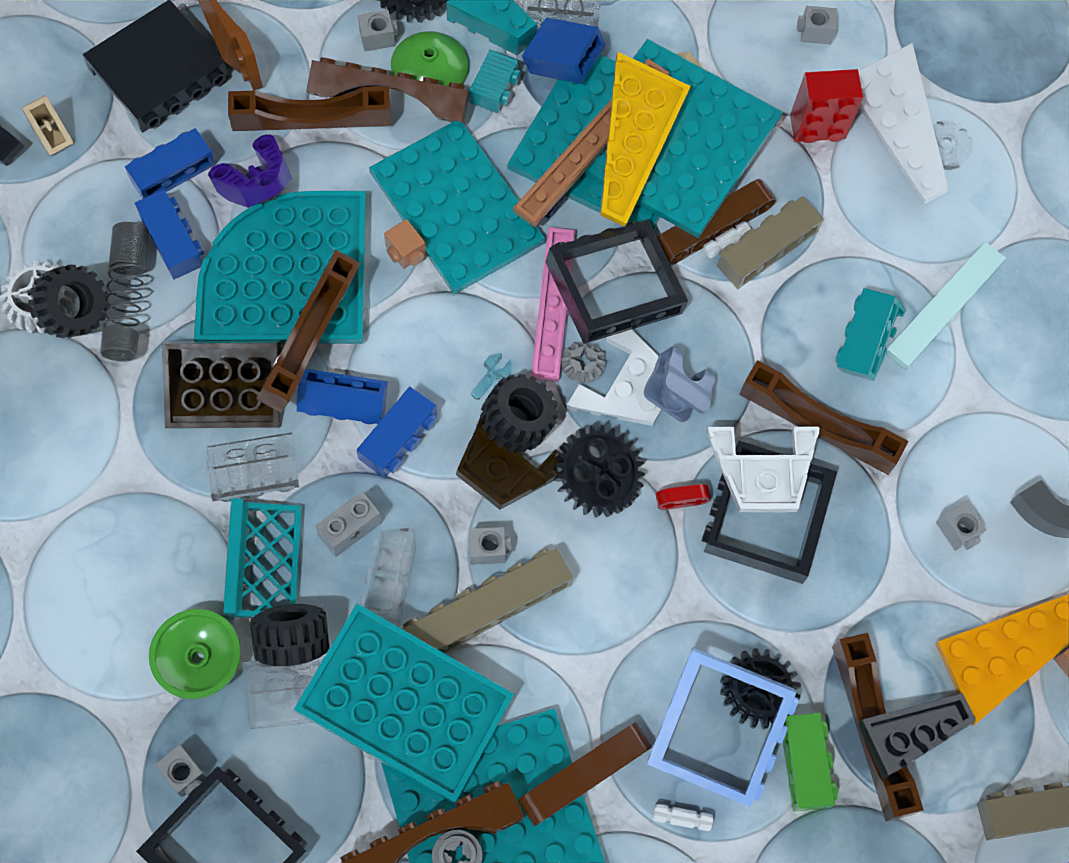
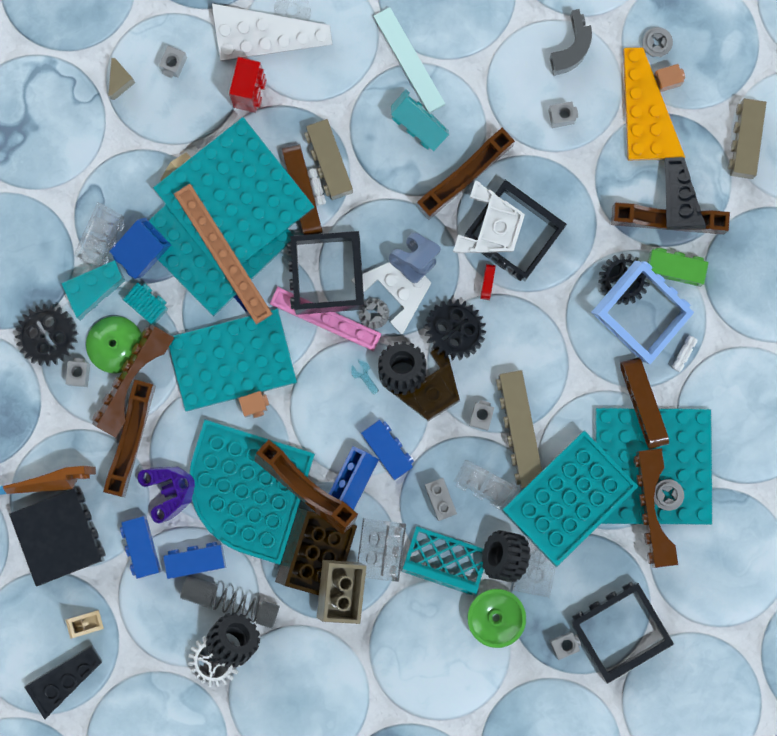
camera: 70 degrees left, 15 degrees up
(175, 424) = (341, 591): none -> dark tan brick
(639, 123) = (222, 216): yellow wing -> none

